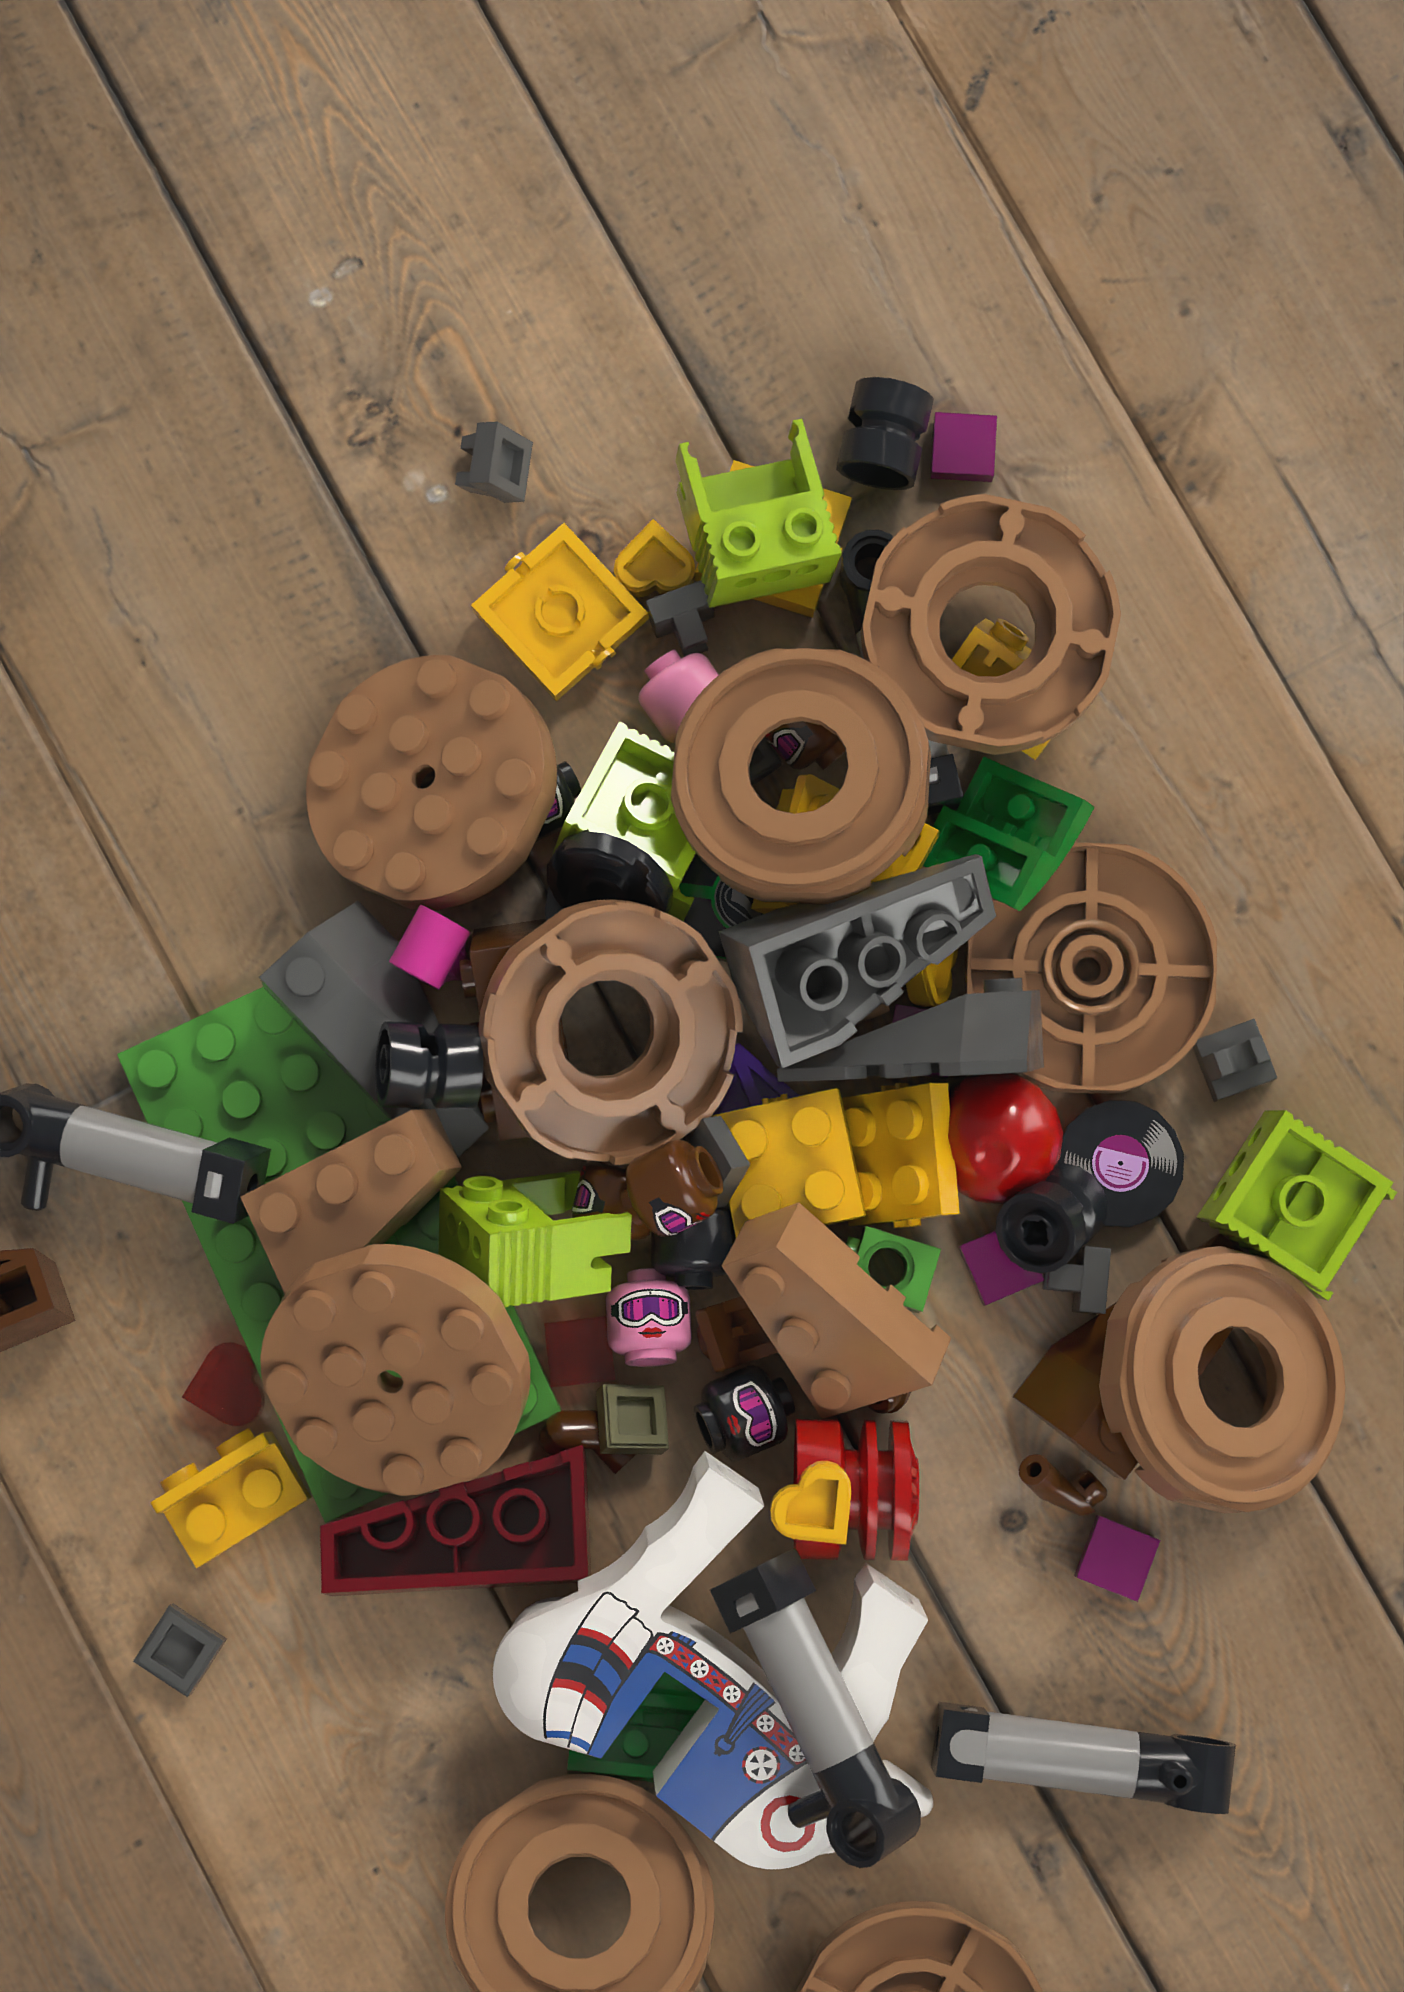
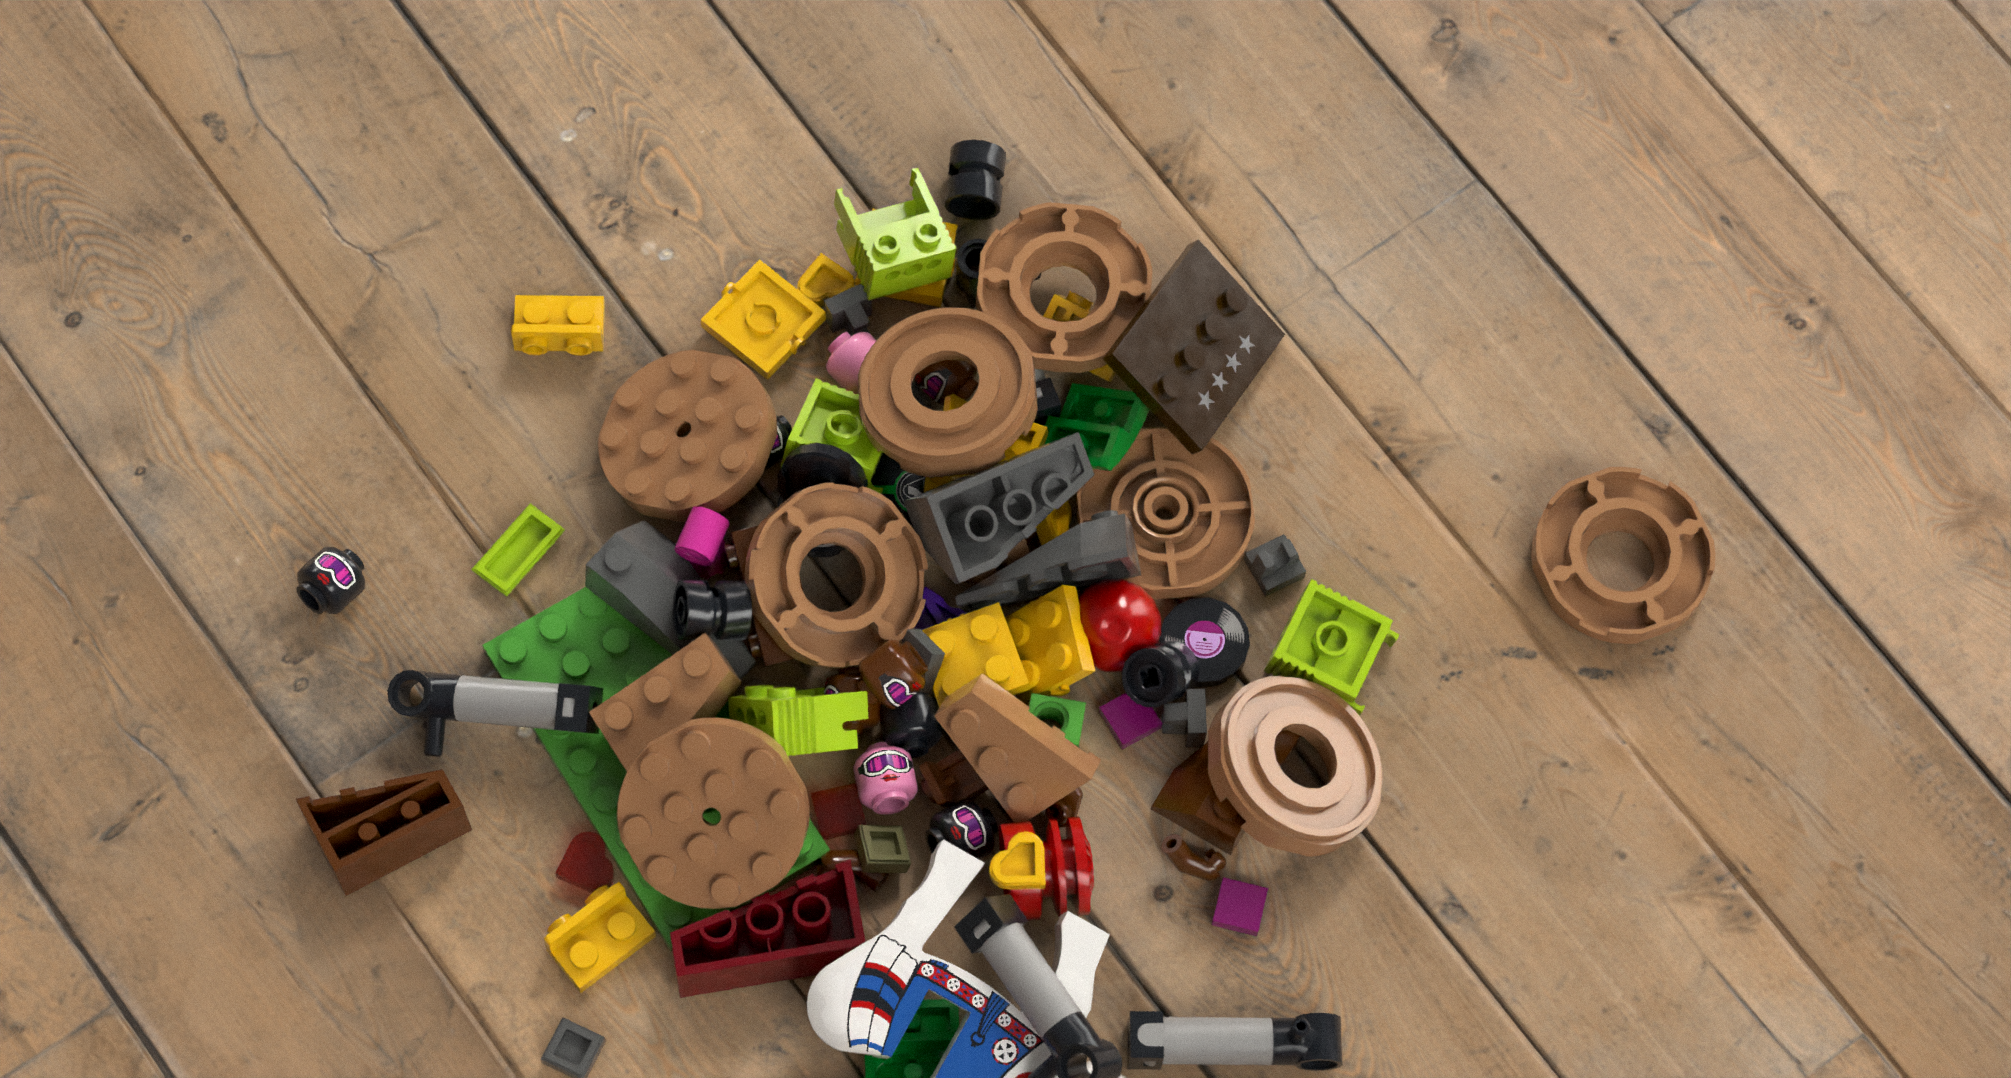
camera: 15 degrees left, 15 degrees down
(182, 917) = (518, 550): none -> lime tile
(274, 586) = (558, 324): none -> yellow bracket
(498, 462) = (708, 227): dark grey tile -> none
(963, 447) = (1030, 184): magenta tile -> none
(1164, 734) = (1194, 347): none -> dark brown plate

